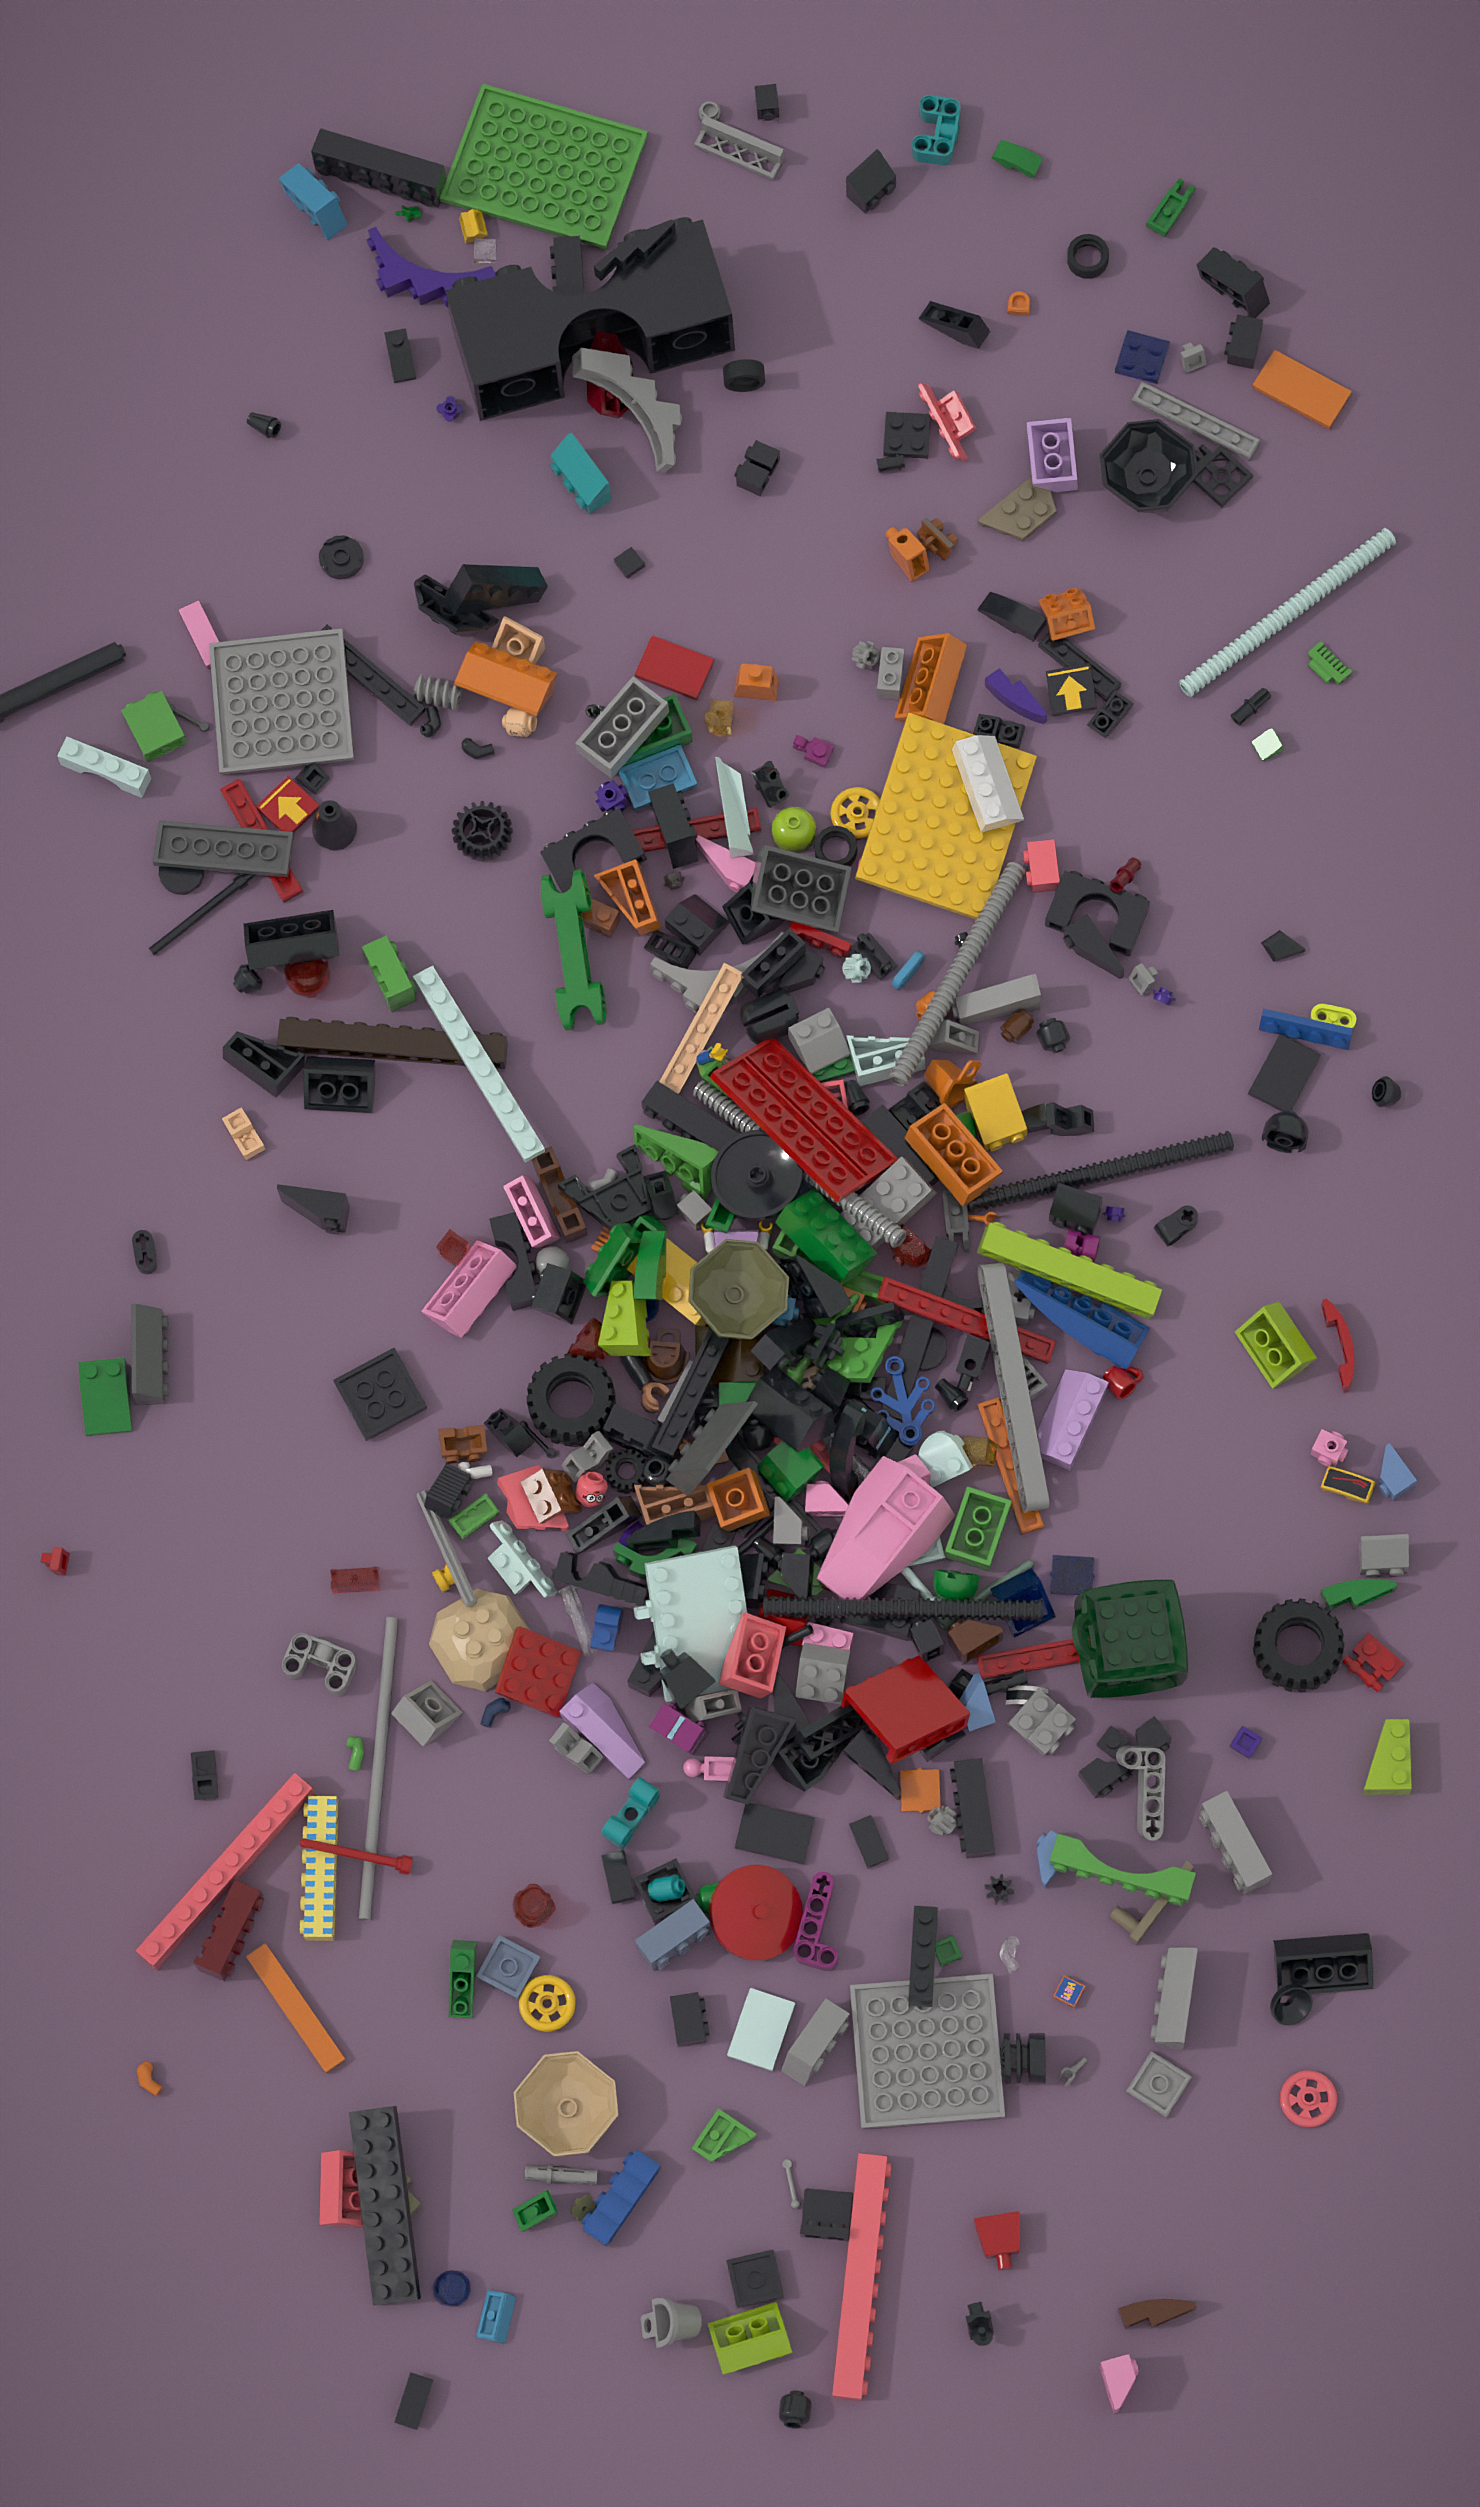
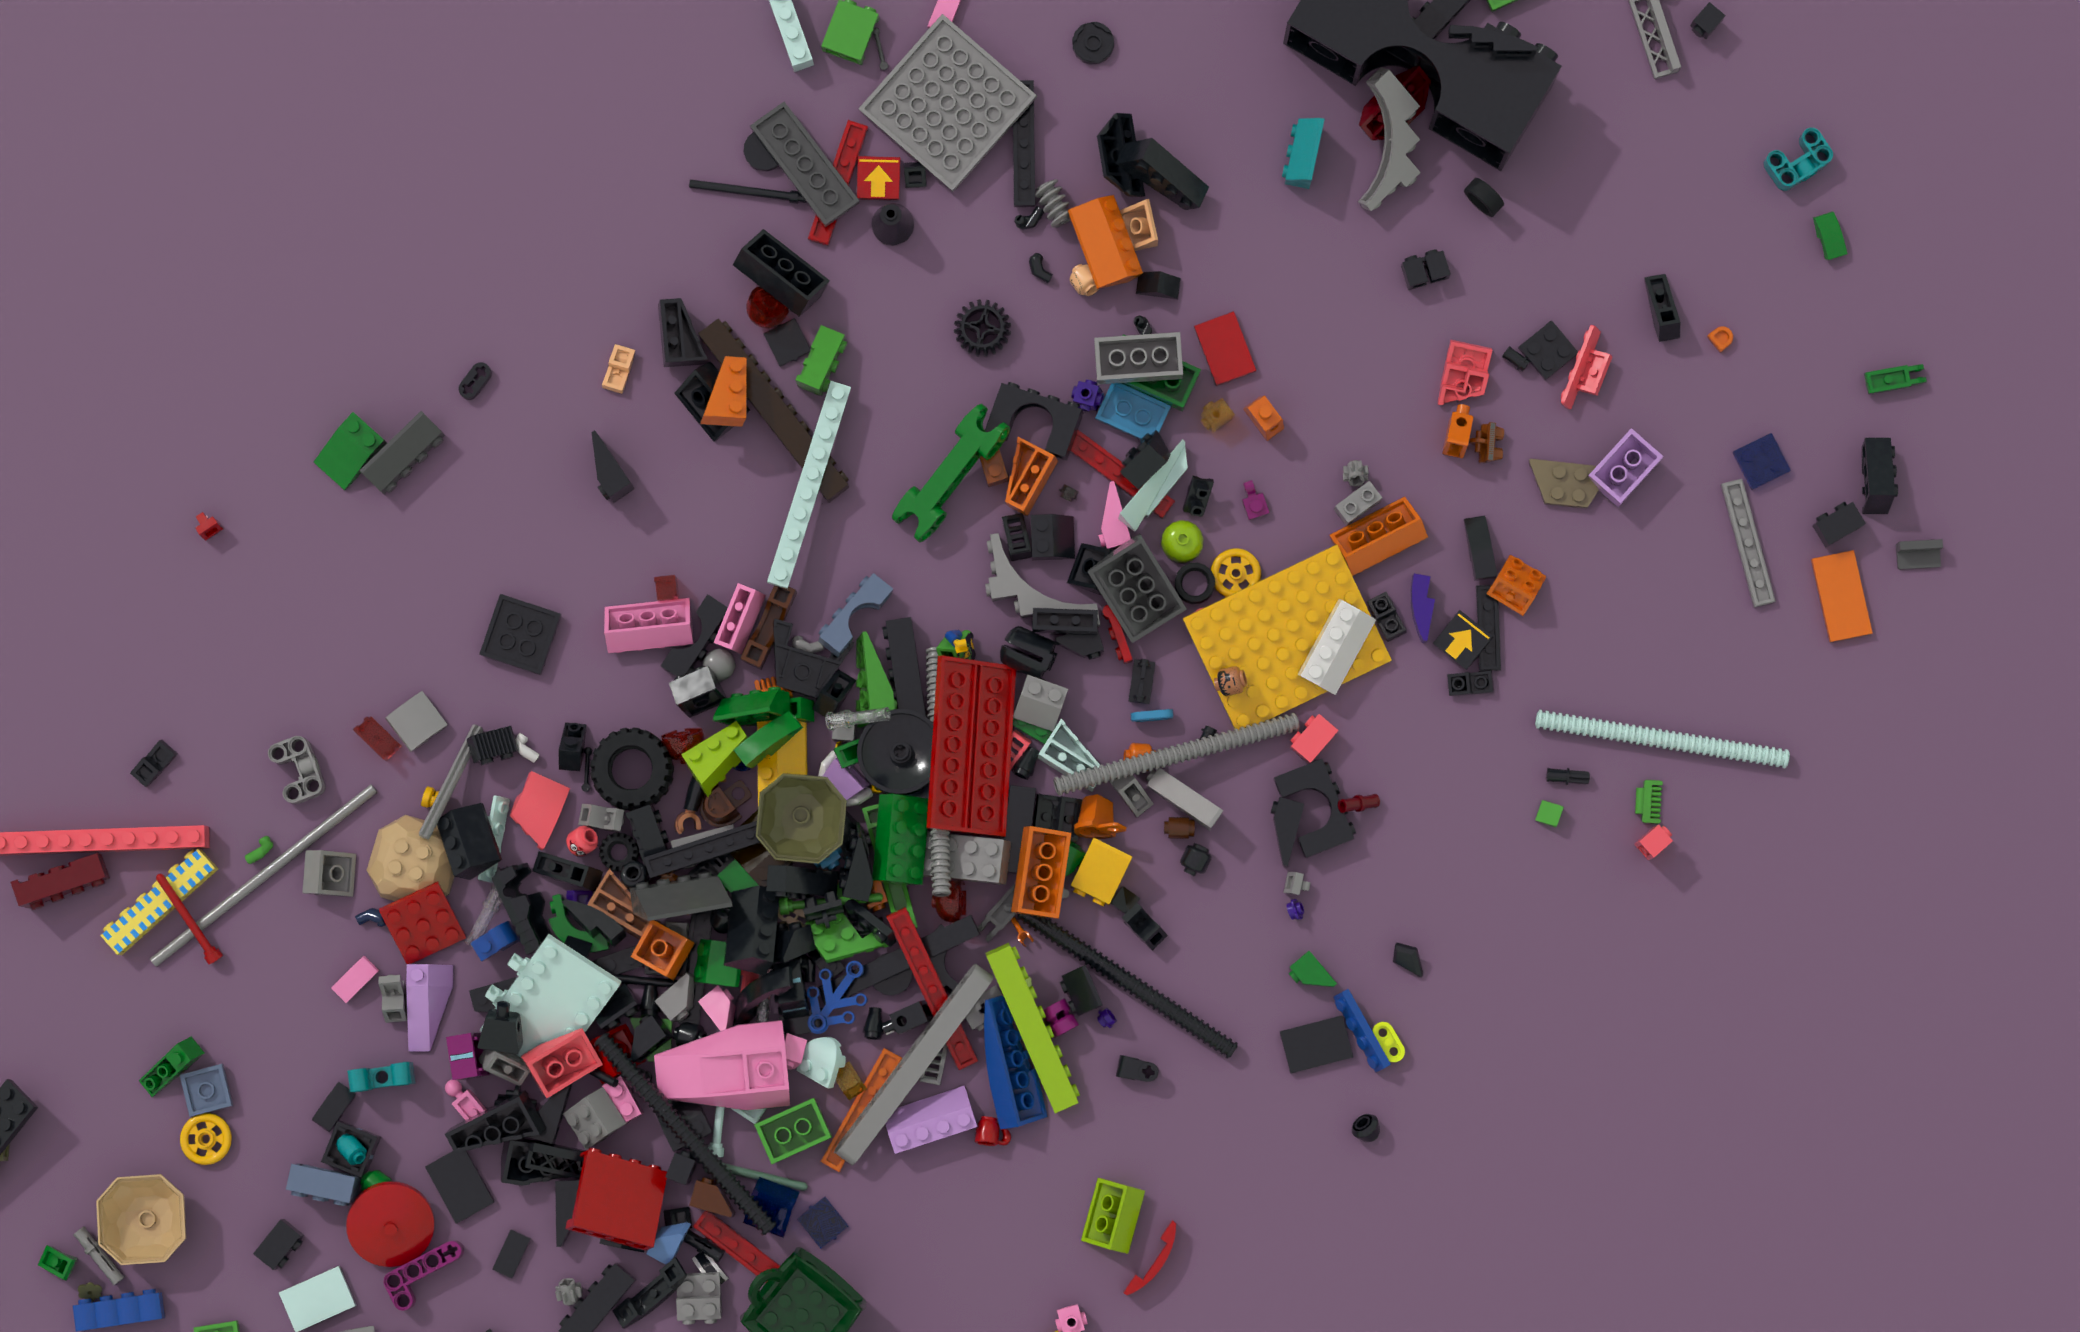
camera: 45 degrees right, 10 degrees up
(247, 980) = (725, 269): black cone -> none
(295, 2008) = (52, 973): orange tile -> none
(348, 988) = (787, 342): none -> black piece
(349, 1057) = (728, 395): none -> orange wedge
(371, 1536) = (416, 721): none -> light grey slope
(451, 414) = (1275, 19): dark purple plate -> none
(463, 1443) = (535, 722): dark orange cylinder -> none
(474, 1516) = (493, 778): bright green plate -> none
(508, 1573) = (468, 841): none -> black slope
(531, 1767) = (354, 979): none -> bright pink slope
(533, 1906) = (260, 1069): clear red hair -> none
(550, 1494) = (552, 818): bracket -> none
(576, 672) = (1158, 285): none -> black slope
(617, 1145) = (872, 594): none -> sand blue arch
(629, 562) = (1273, 245): black tile -> none
(674, 825) = (1105, 457): black wedge -> none
(693, 1192) = (849, 719): none -> clear pin
(701, 1028) = (976, 612): light nougat plate -> none
(705, 795) = (1145, 460): none -> black slope
(856, 968) = (1119, 678): light aqua gear -> none
(864, 509) = (1464, 372): none -> coral slope
(870, 182) = (1713, 151): black slope -> none
(919, 1790) = (579, 1256): orange piece -> none
(939, 882) = (1230, 681): none -> nougat head
(955, 1584) = (739, 1152): green cylinder -> none
(1007, 1755) = (652, 1295): none -> black slope
(1088, 272) = (1802, 337): black tyre -> none
(1148, 466) = (1677, 544): black rock -> none
(1192, 357) = (1793, 497): light grey tile -> none
(1206, 461) = (1722, 578): black piece -> none
(1224, 1027) = (1310, 972): none -> green slope
(1285, 1132) = (1273, 1084): black cylinder -> none
(1322, 306) = (1919, 554): none -> dark grey panel
(1362, 684) = (1654, 841): none -> coral brick

